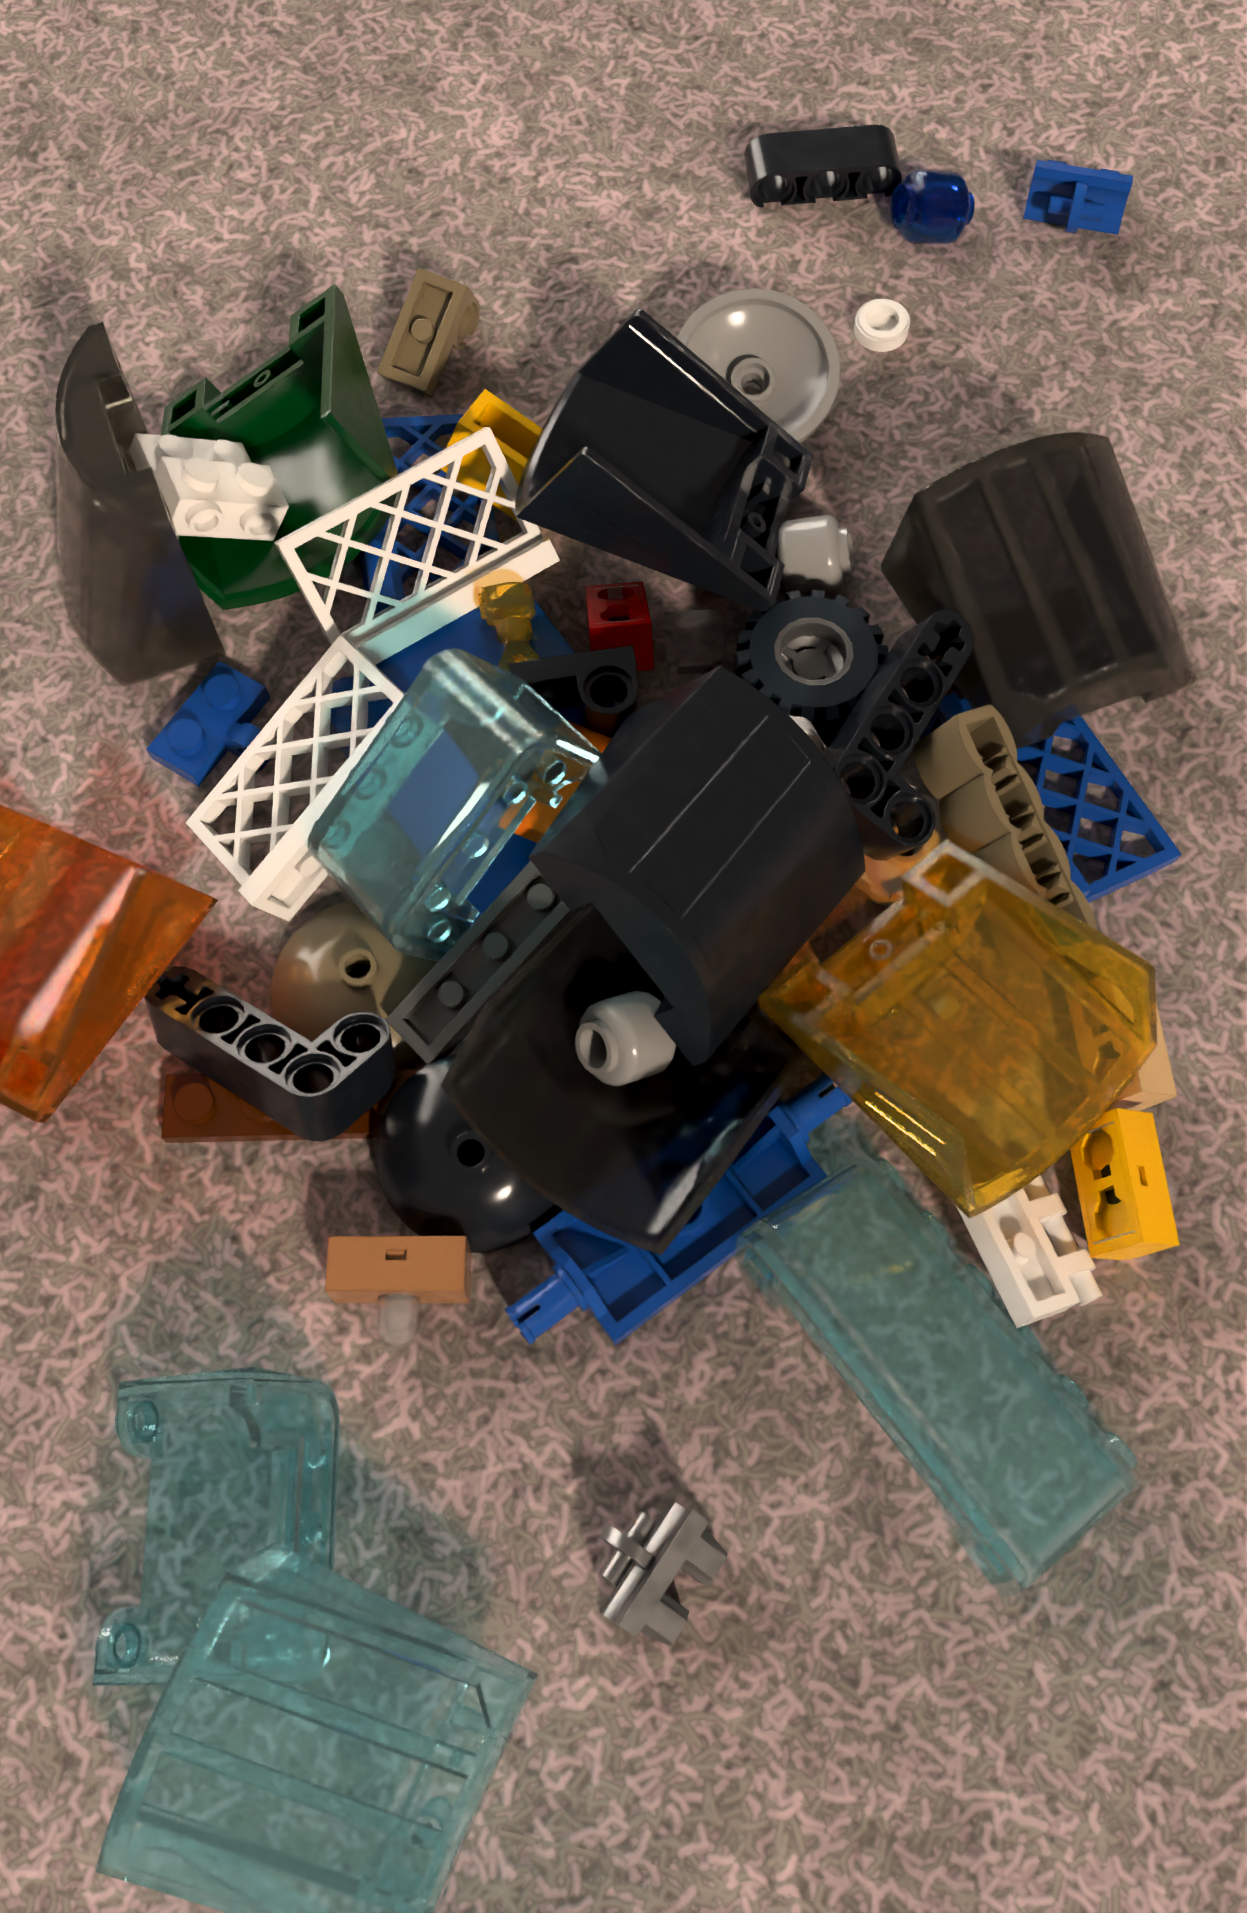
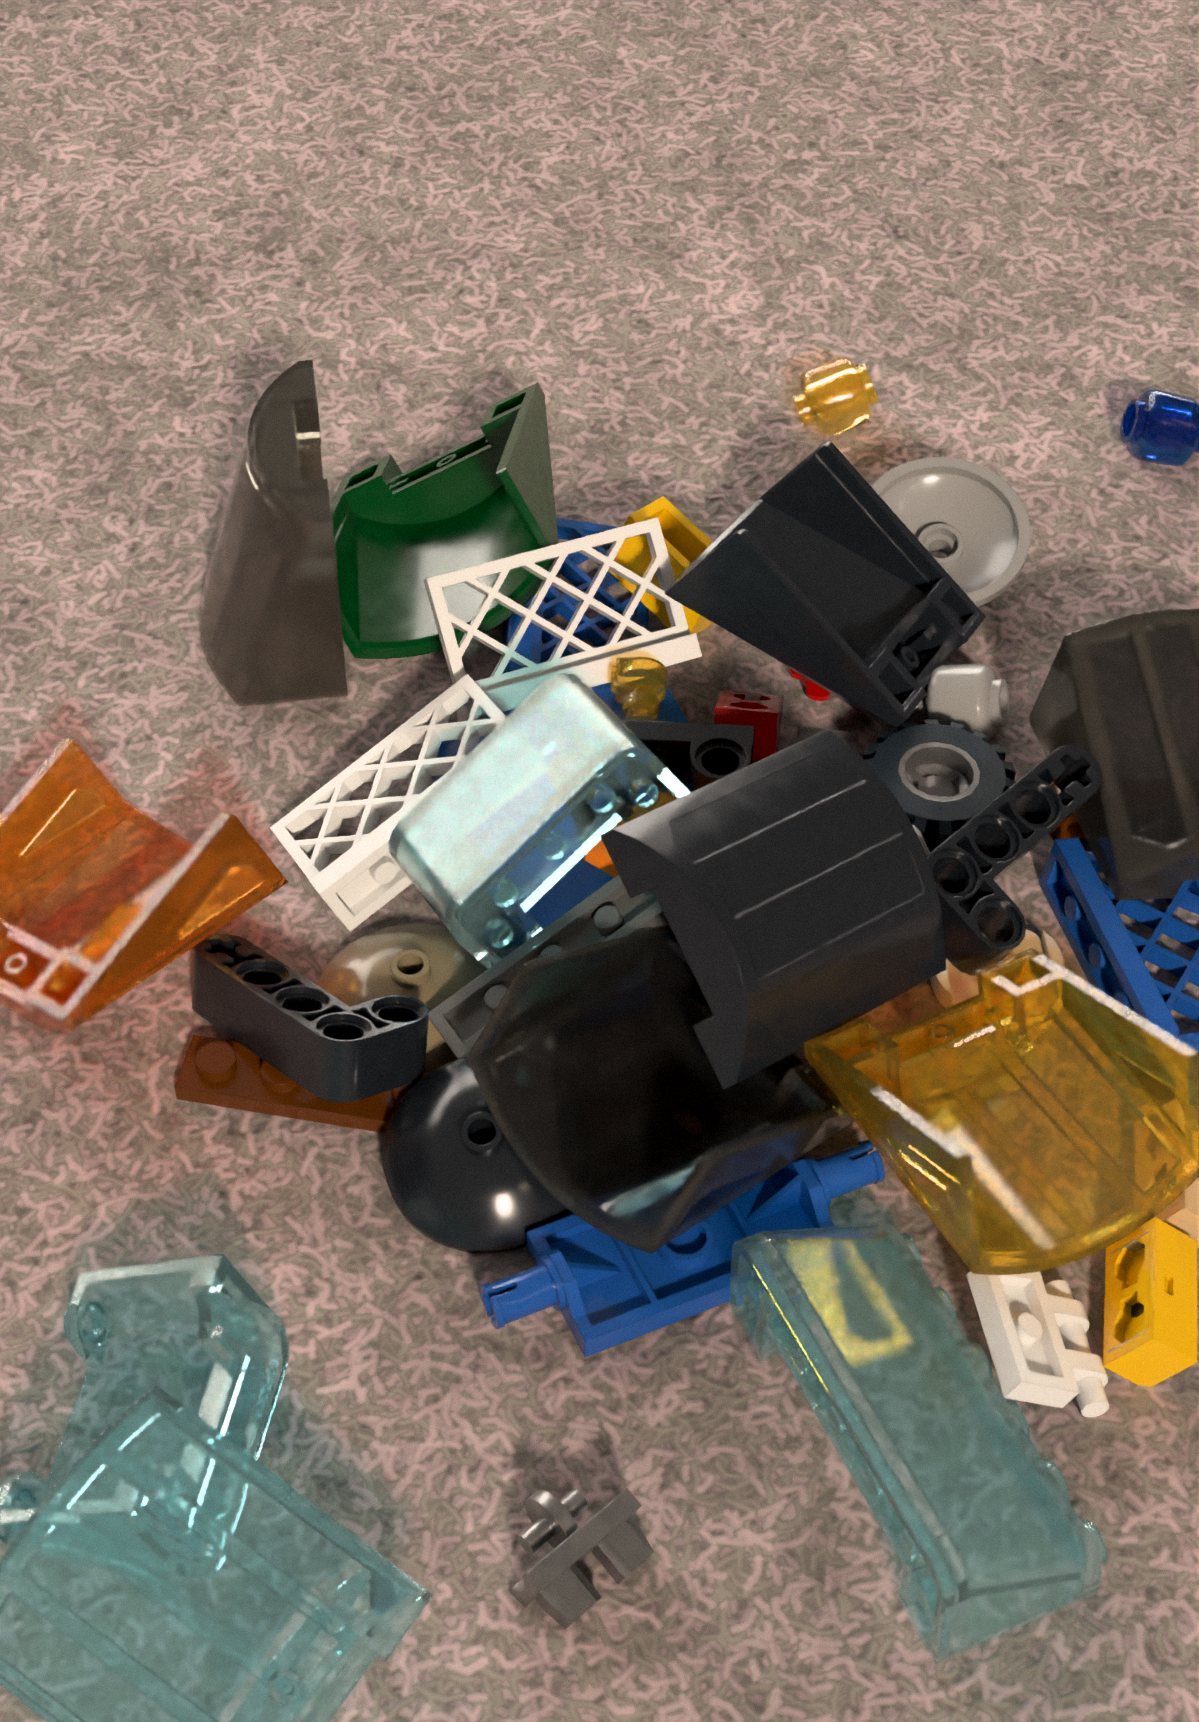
camera: 10 degrees right, 20 degrees down
(211, 724) = (317, 750): blue plate -> none
(212, 486) = (382, 545): white plate -> none
(398, 1277) = (381, 1244): medium nougat piece -> none
(431, 322) = (627, 443): dark tan plate -> none
(617, 227) = (835, 396): none -> clear yellow head
(623, 1040) = (661, 1061): light grey head -> none
(822, 164) = (1058, 375): black beam -> none
(881, 325) = (1088, 523): white tile -> none
(995, 807) = (1086, 918): dark tan brick -> none

